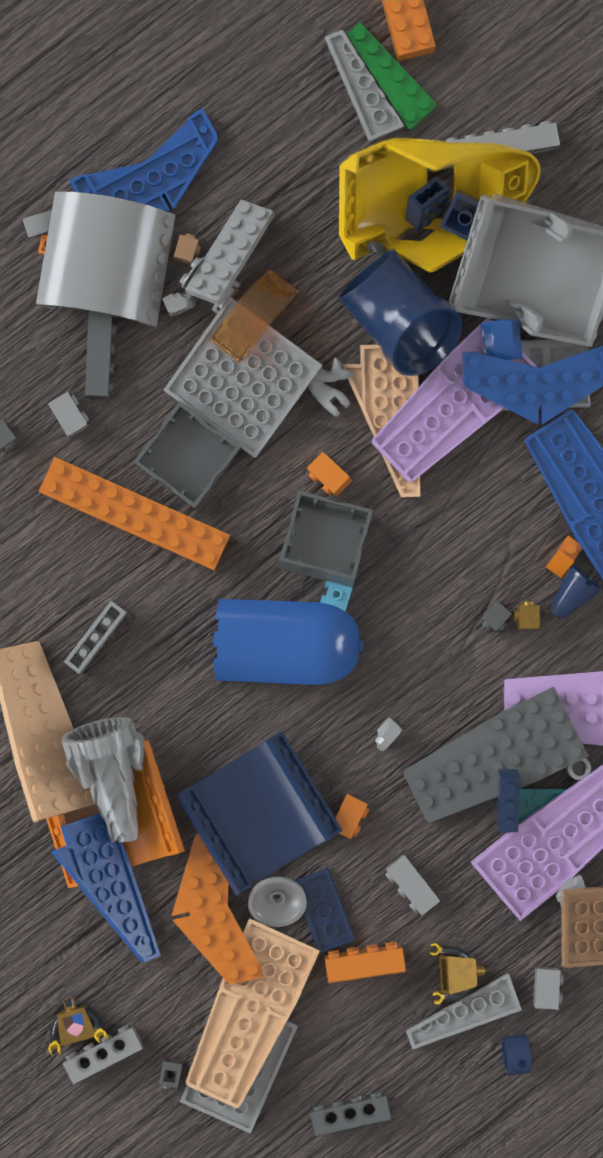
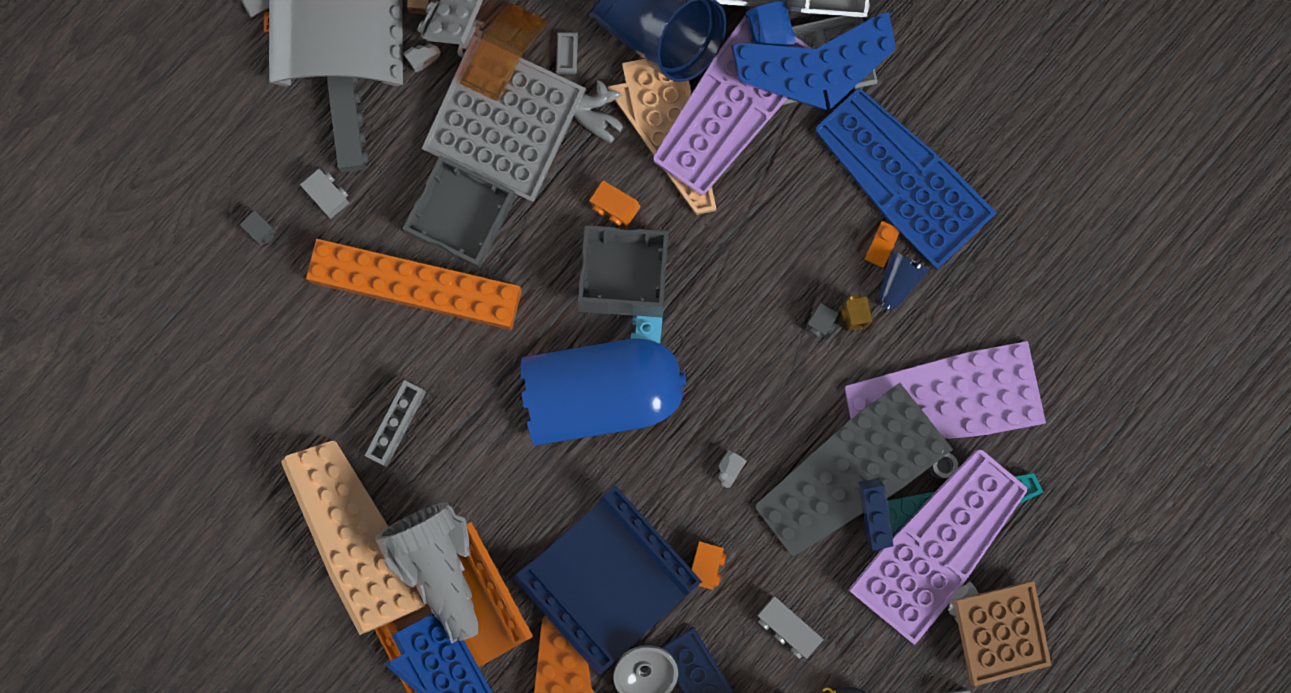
camera: 10 degrees left, 5 degrees down
(311, 325) = (566, 53): none -> light grey tile

